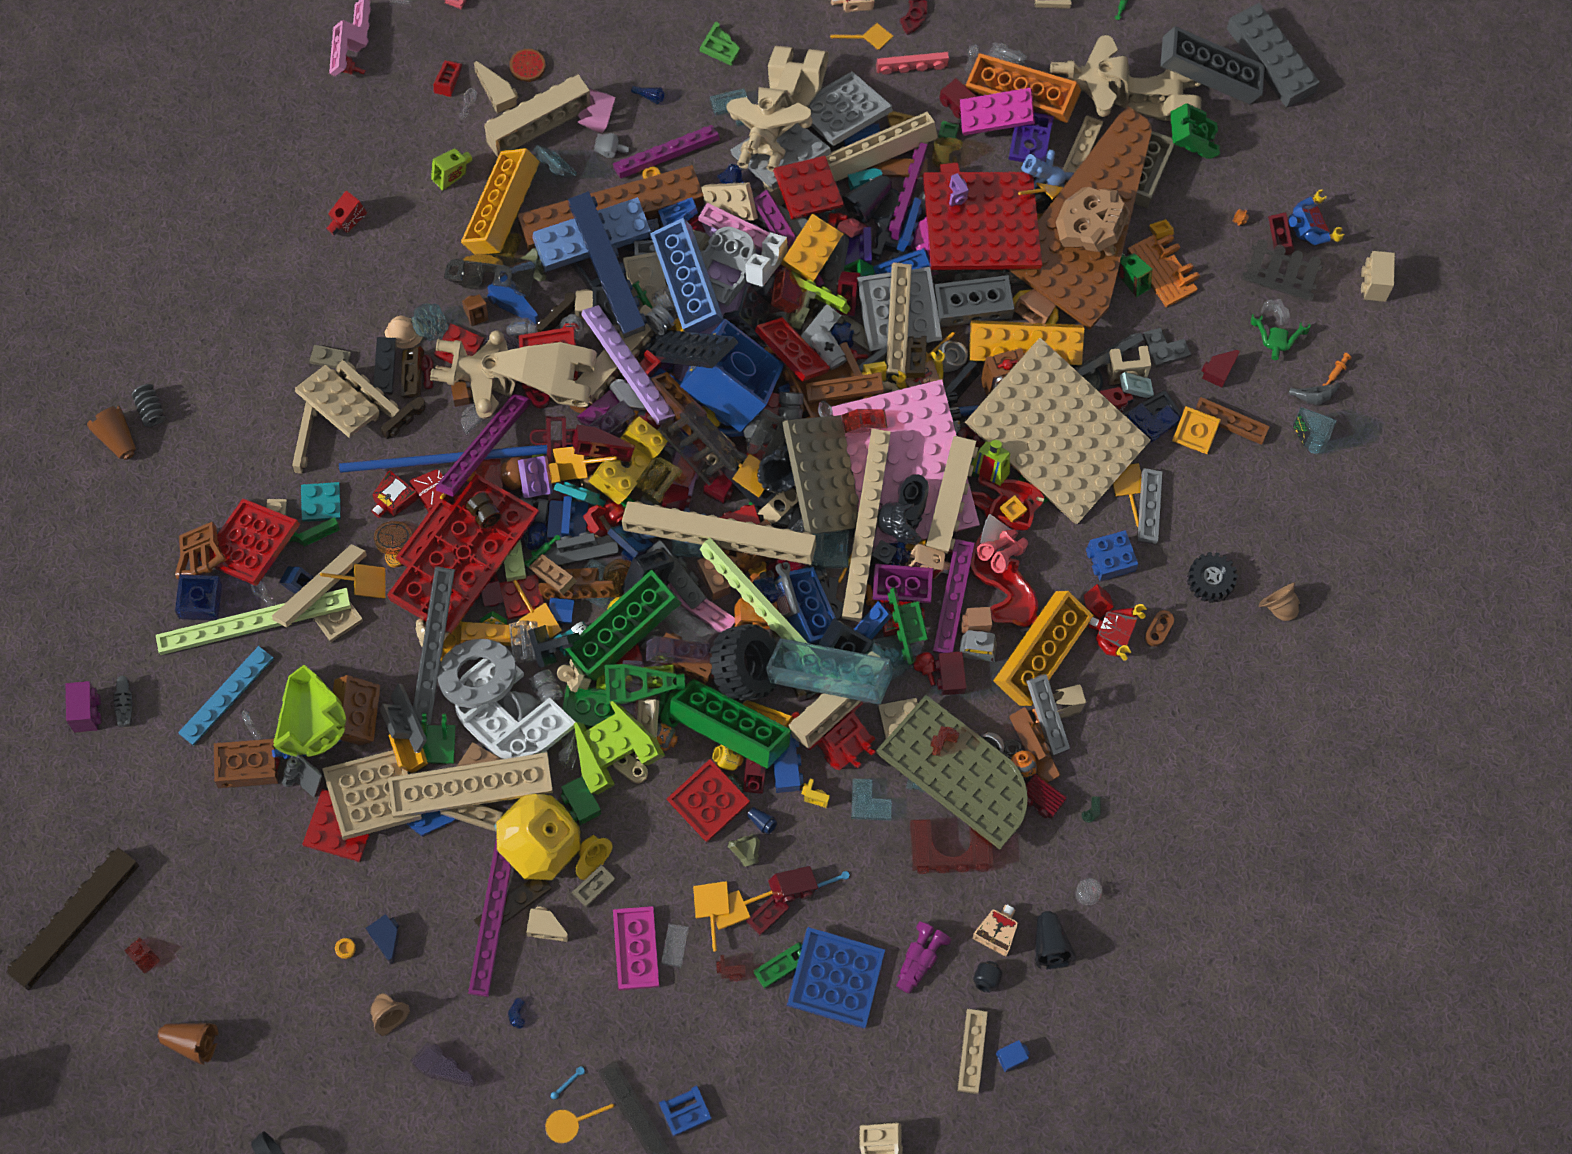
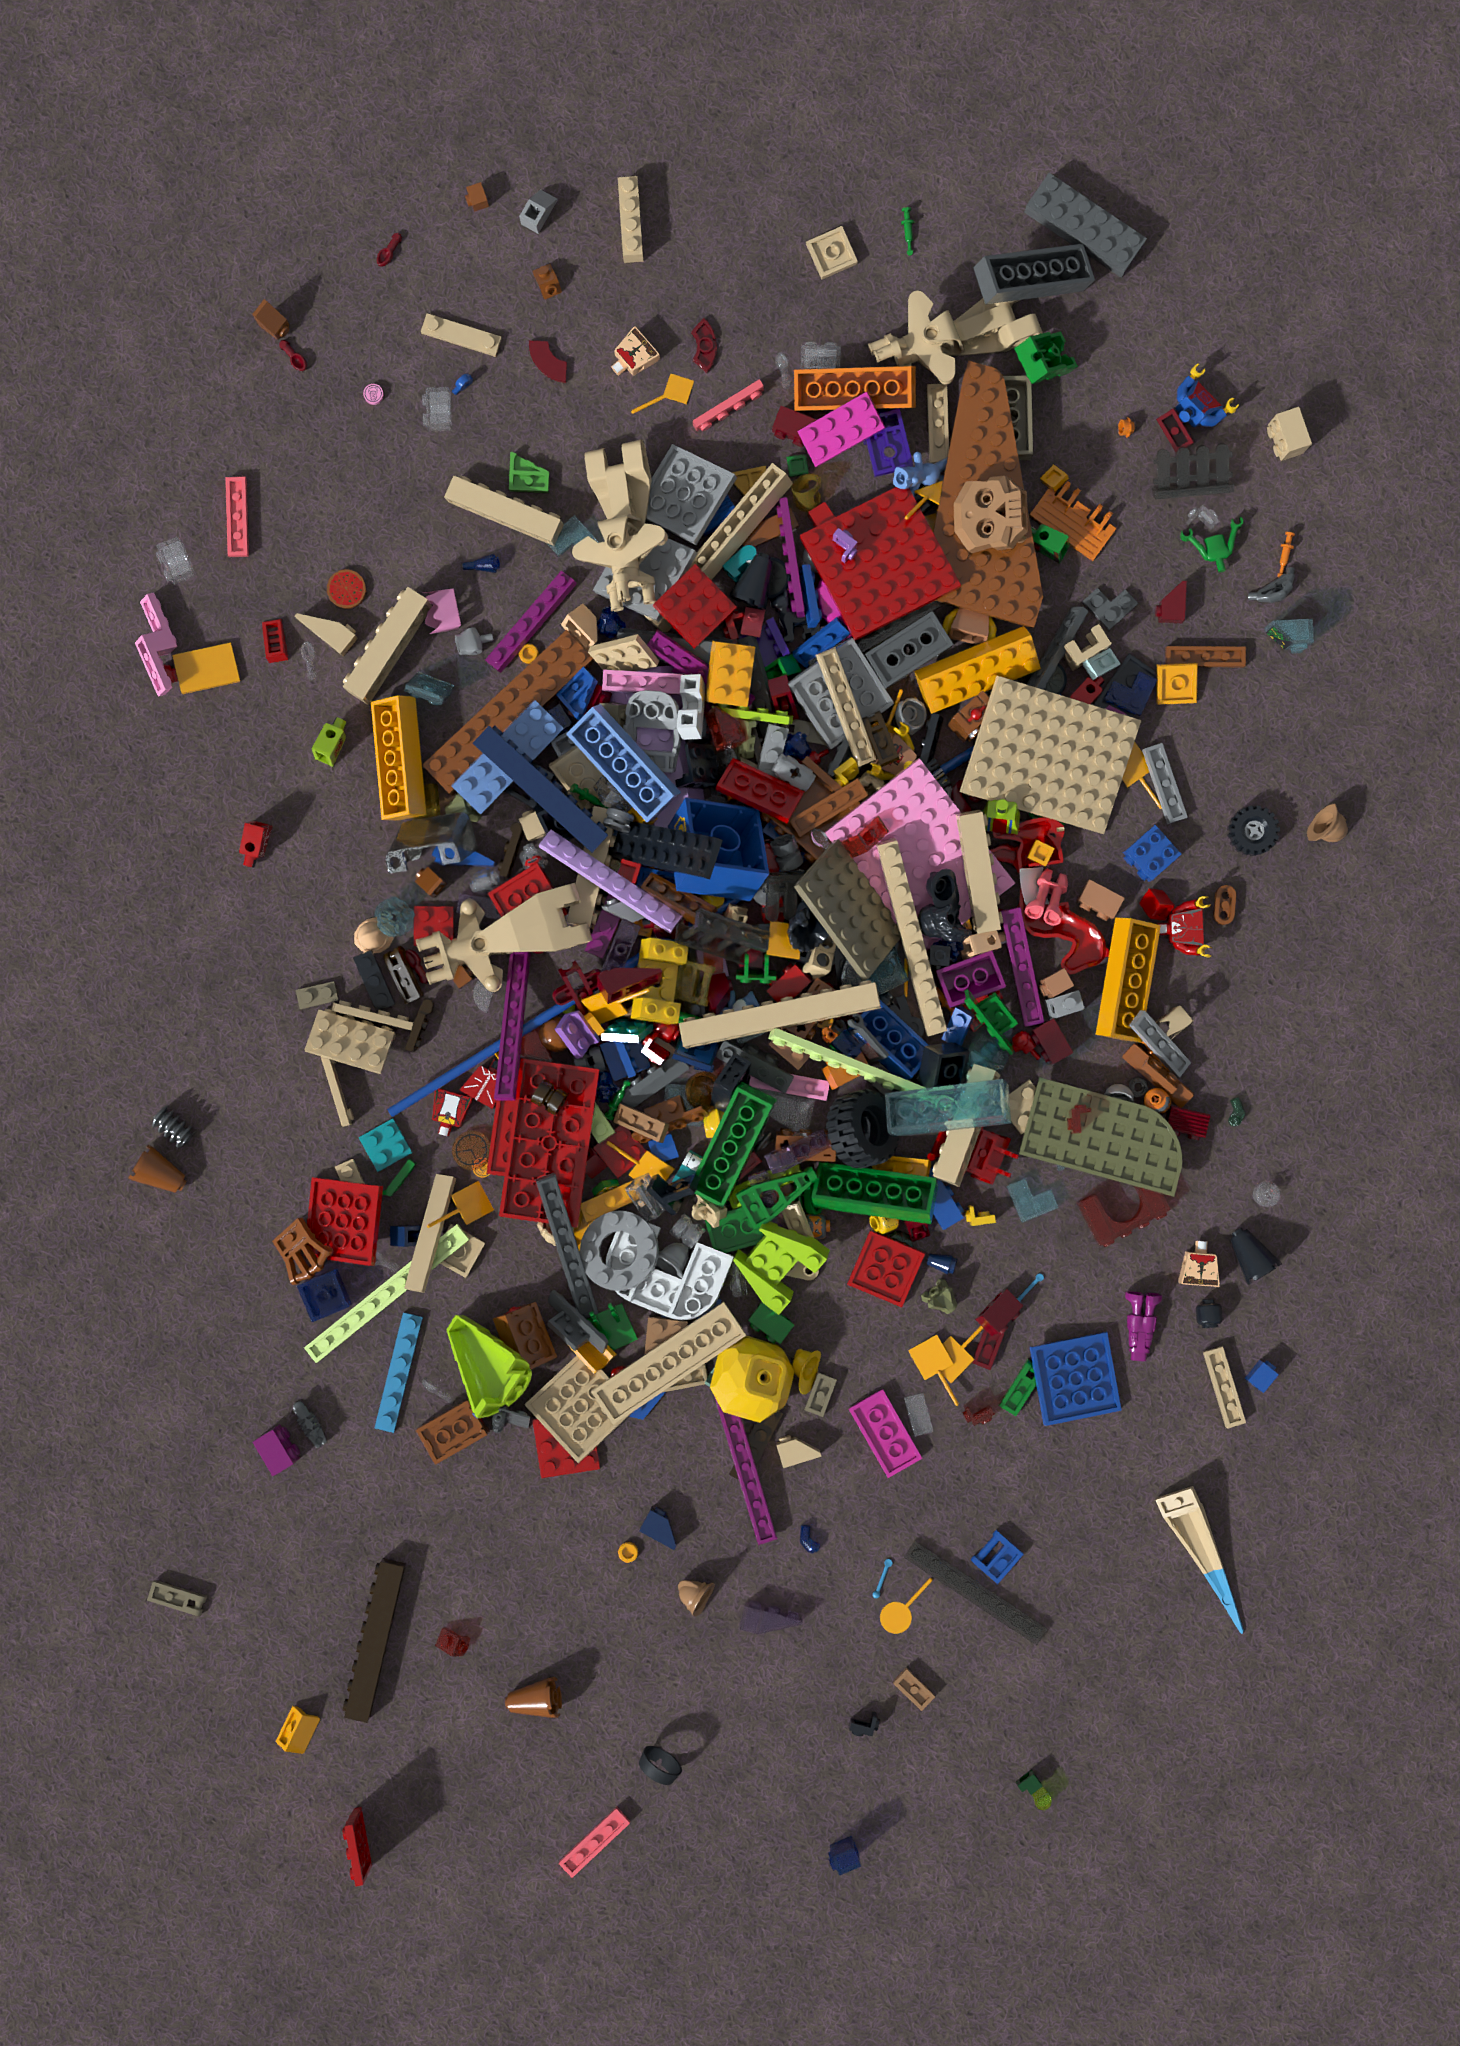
camera: 15 degrees left, 20 degrees up
(380, 73) = (206, 668): none -> light orange tile
(688, 59) = (504, 510): none -> tan brick
(706, 168) = (582, 626): none -> light nougat slope
(708, 499) = (747, 975): none -> green plate
(1048, 574) = (1100, 900): none -> nougat brick

